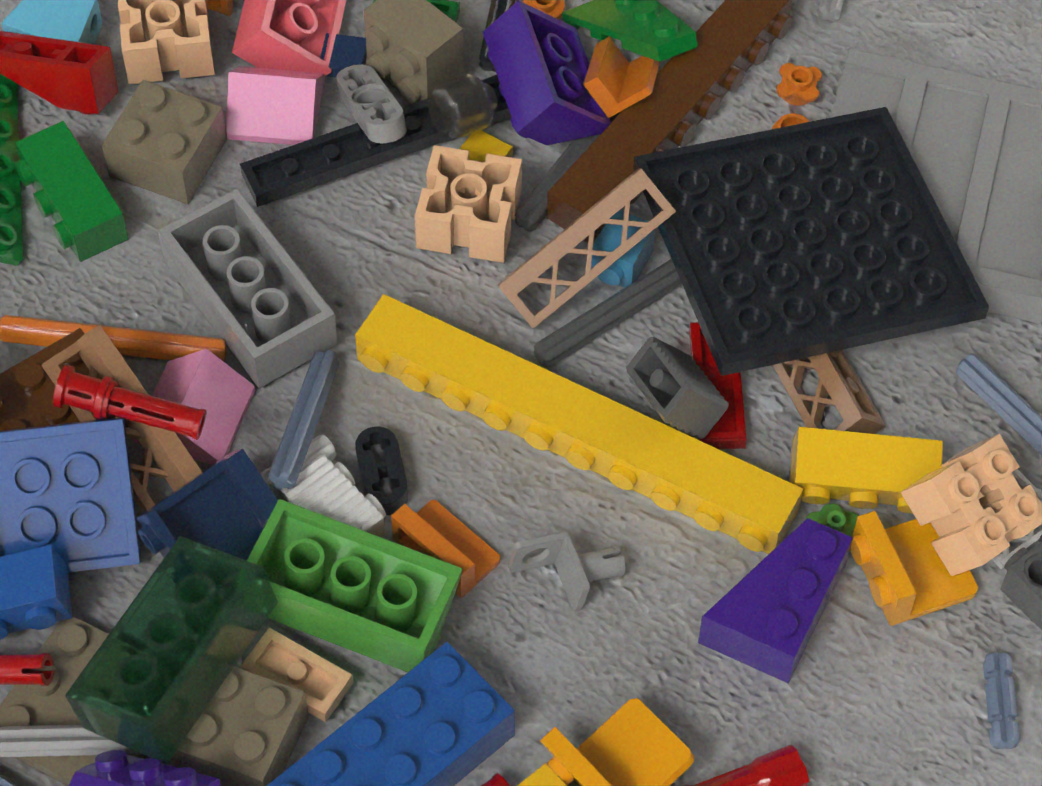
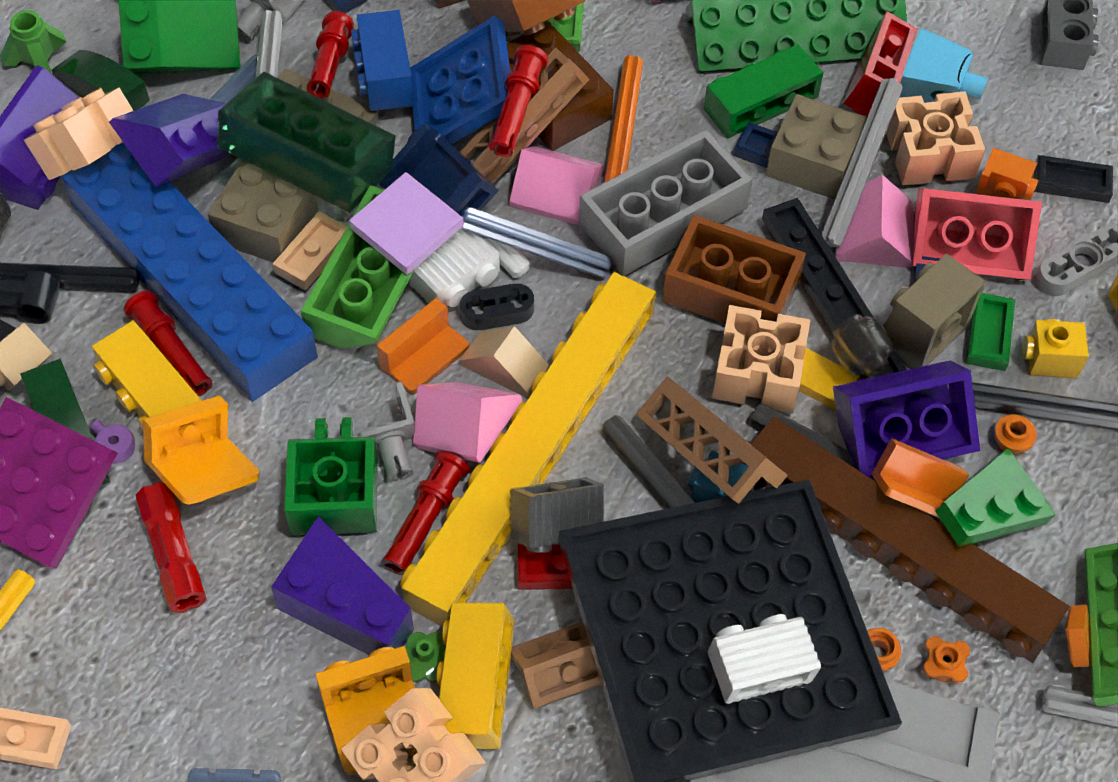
camera: 90 degrees right, 0 degrees up
(147, 205) = (755, 144): none -> dark blue tile
(181, 80) = (861, 162): none -> light grey axle
(303, 531) = (406, 223): none -> lavender tile
(357, 224) = (731, 267): none -> dark orange brick
(371, 103) = (837, 280): light grey beam -> none
(457, 462) = (505, 359): none -> tan slope
(550, 486) = (461, 418): none -> bright pink slope
(642, 617) = (332, 481): none -> green hinge
(723, 553) = (433, 496): none -> red pin
(851, 193) = (763, 658): none -> white brick

